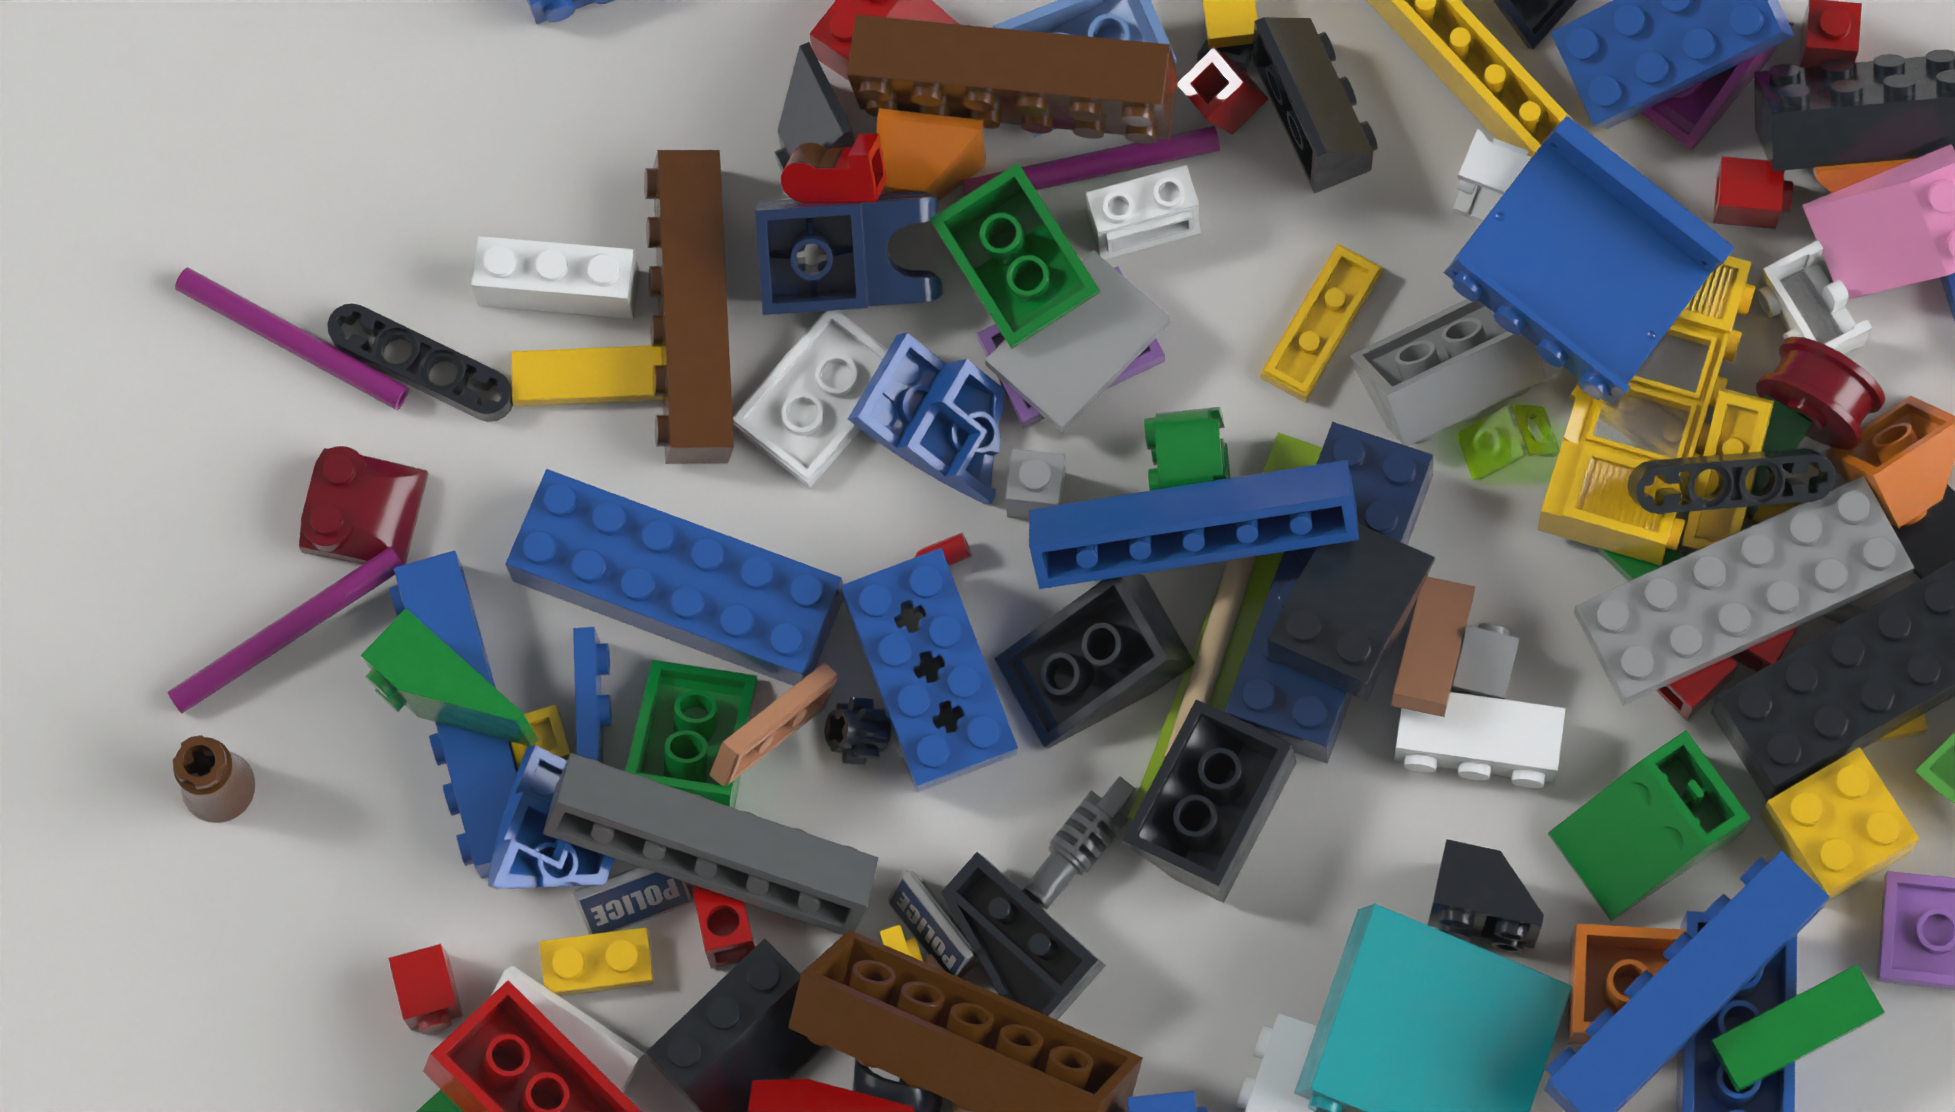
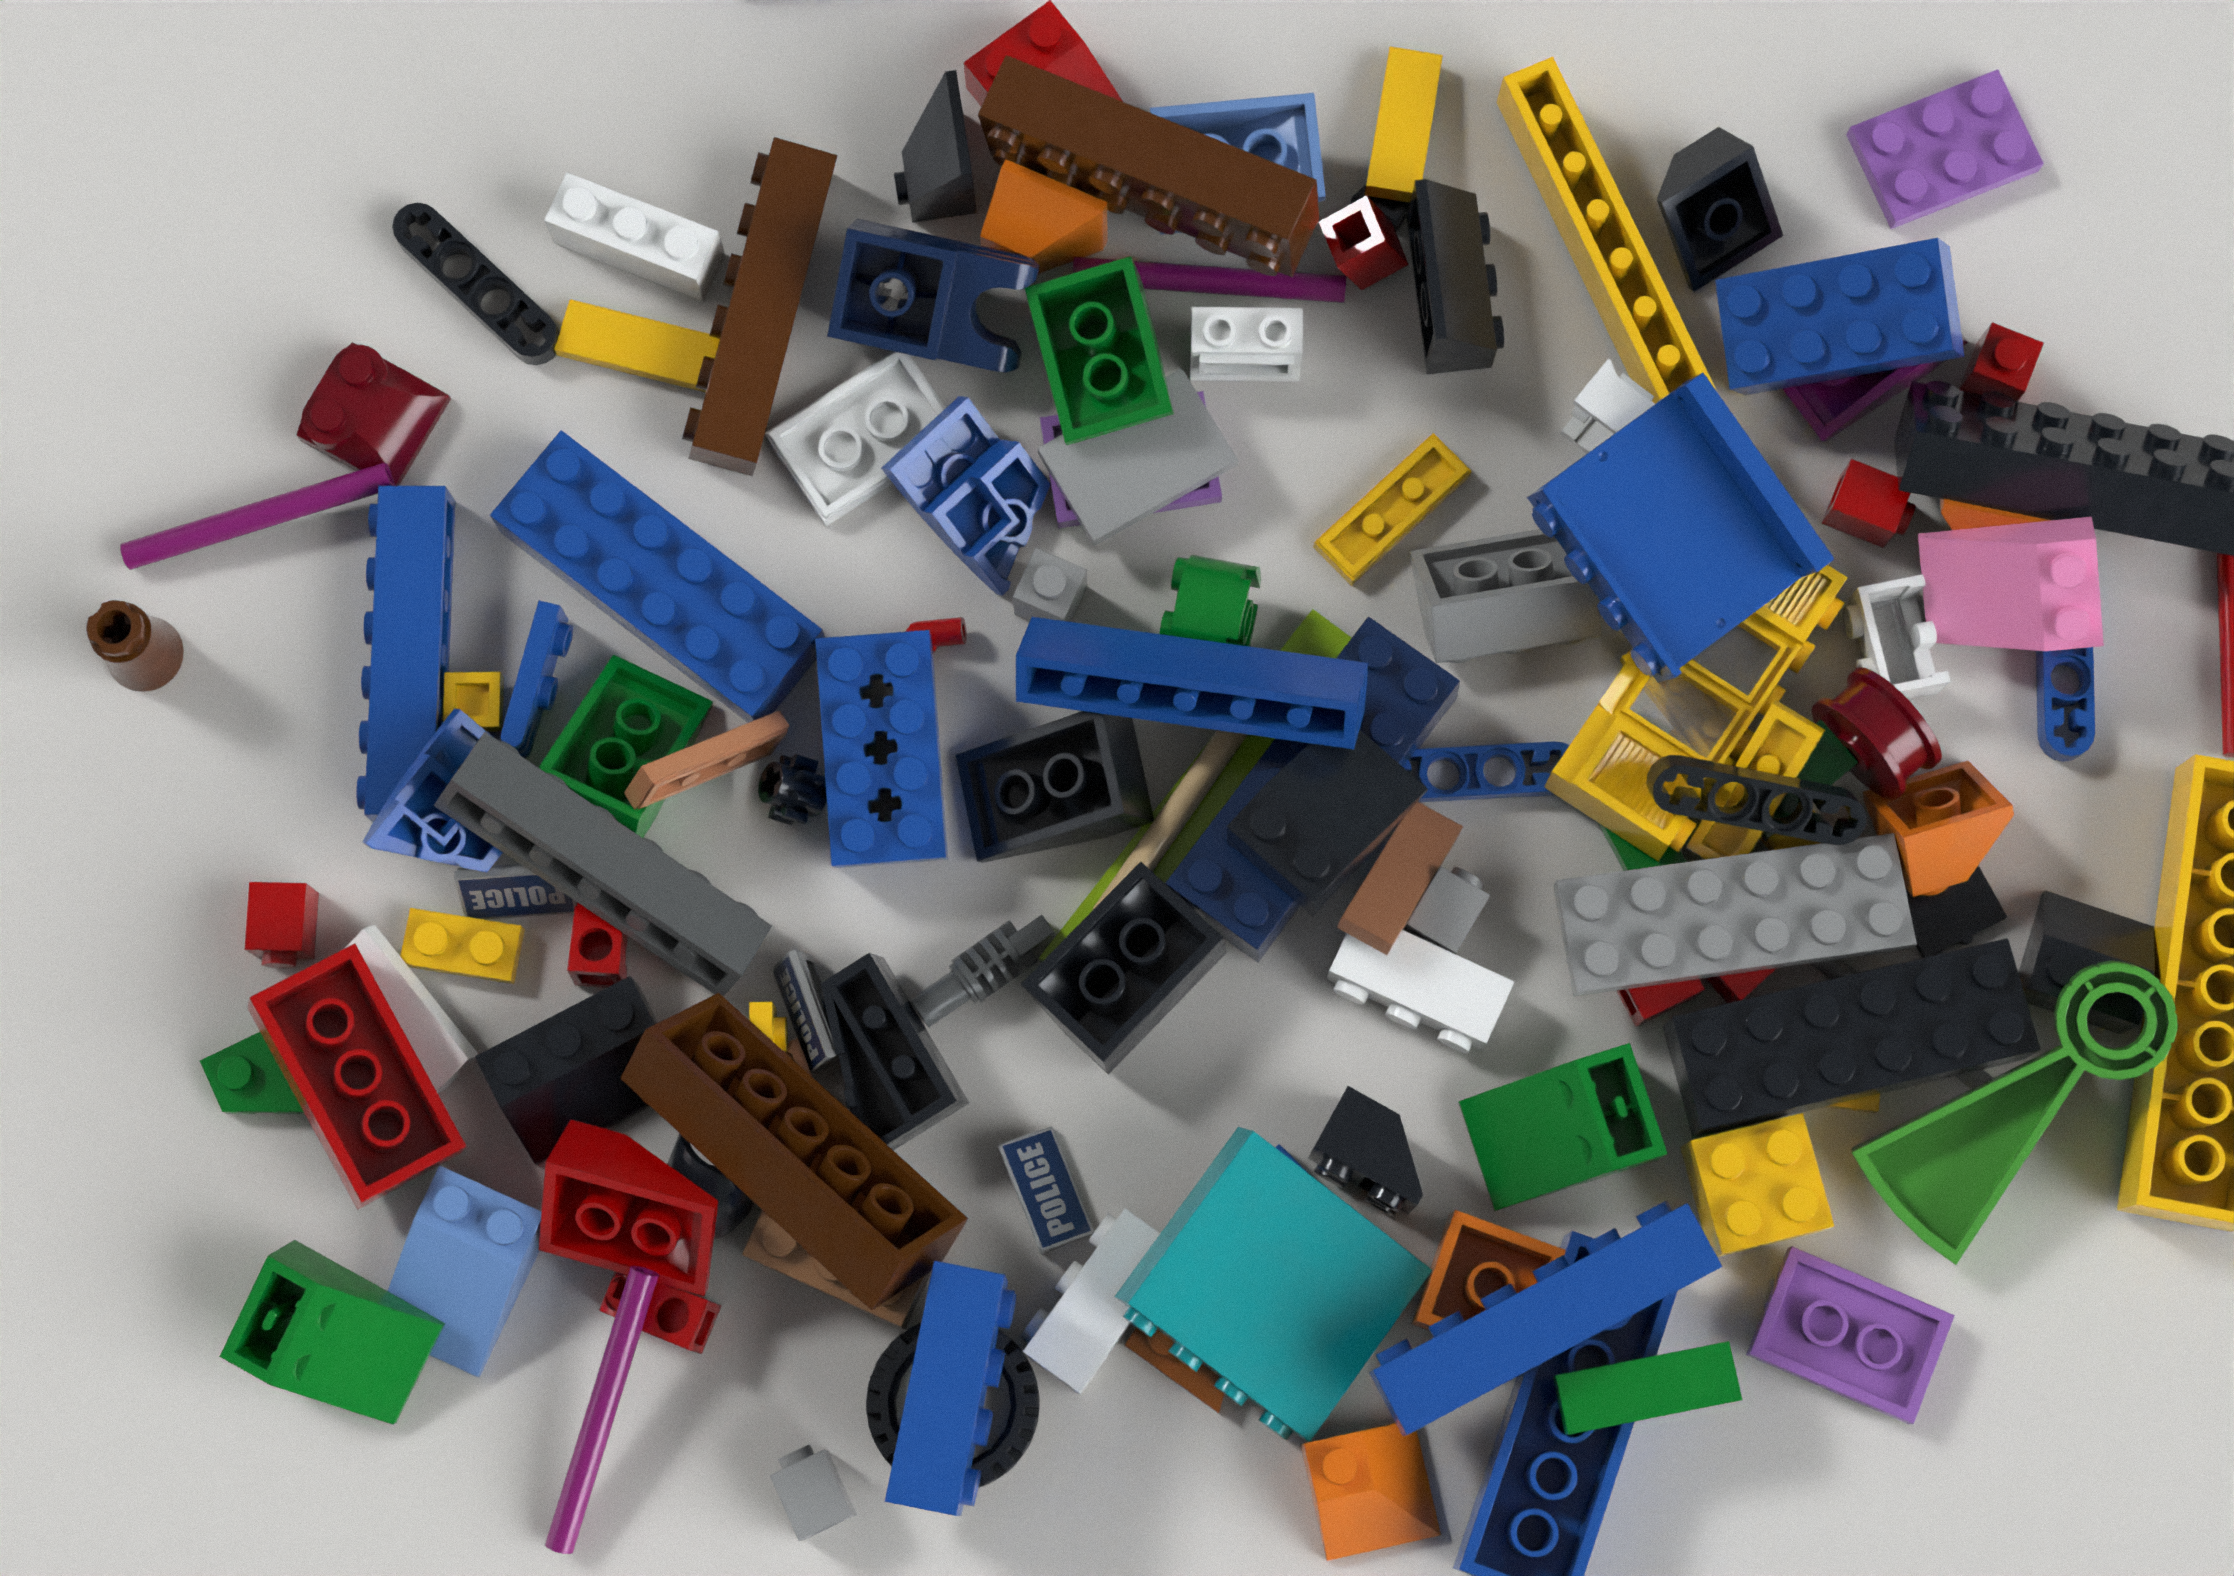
camera: 10 degrees right, 5 degrees up
(292, 338) = (357, 222): magenta piece -> none
(430, 679) = (362, 599): green slope -> none
(836, 173) = (943, 213): red leg -> none
(1199, 1023) = (1046, 1189): none -> slope
(1463, 530) = (1470, 765): none -> blue beam
(1506, 439) = (1541, 684): clear neon green bracket -> none

